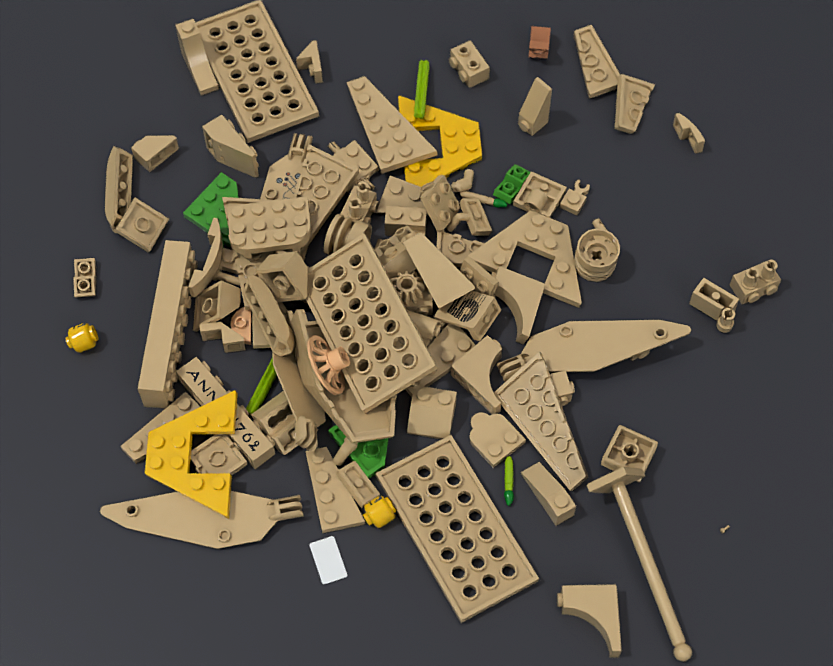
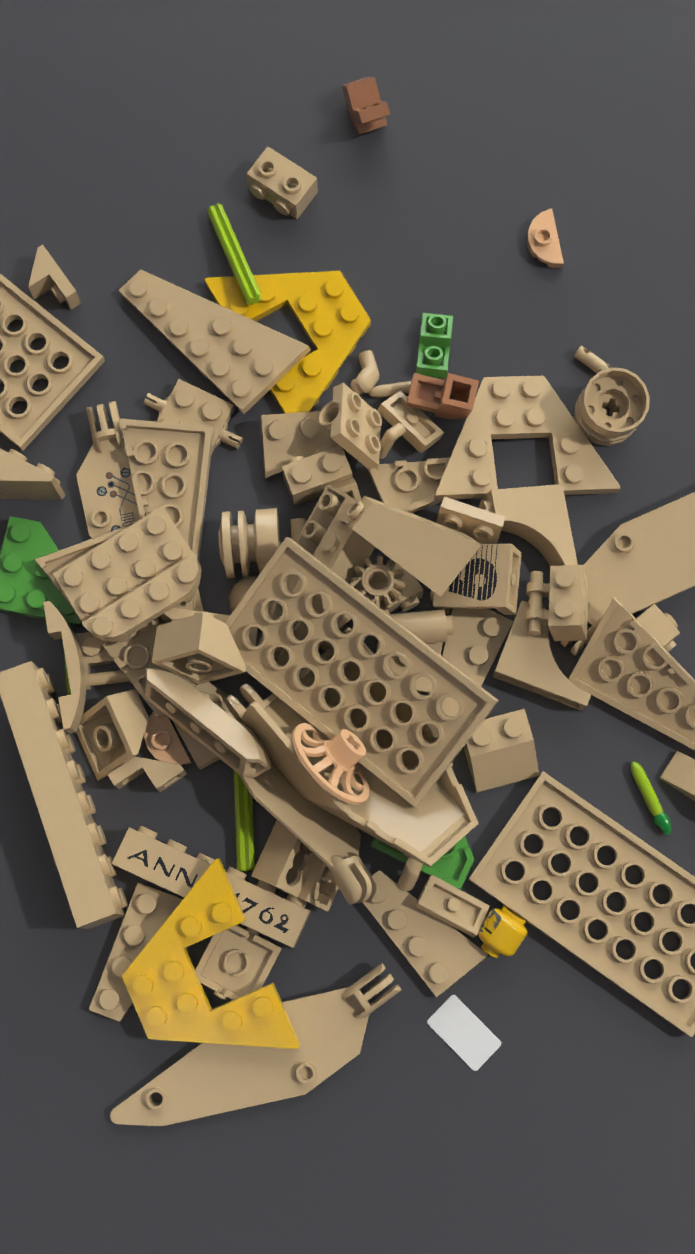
camera: 25 degrees left, 15 degrees up
(360, 204) = (239, 483): tan brick -> none
(494, 437) = (599, 744): tan plate -> none
(502, 211) = (446, 398): none -> nougat brick
(508, 343) = (567, 603): none -> tan brick
(536, 108) = (417, 215): tan slope -> none
(539, 195) = (483, 346): tan plate -> none
(574, 200) = (531, 330): tan plate -> none
(597, 66) = (462, 105): tan wing -> none
(607, 154) = (544, 240): none -> light nougat plate
(630, 102) = (537, 141): tan wing -> none
(686, 129) = (632, 151): tan slope -> none

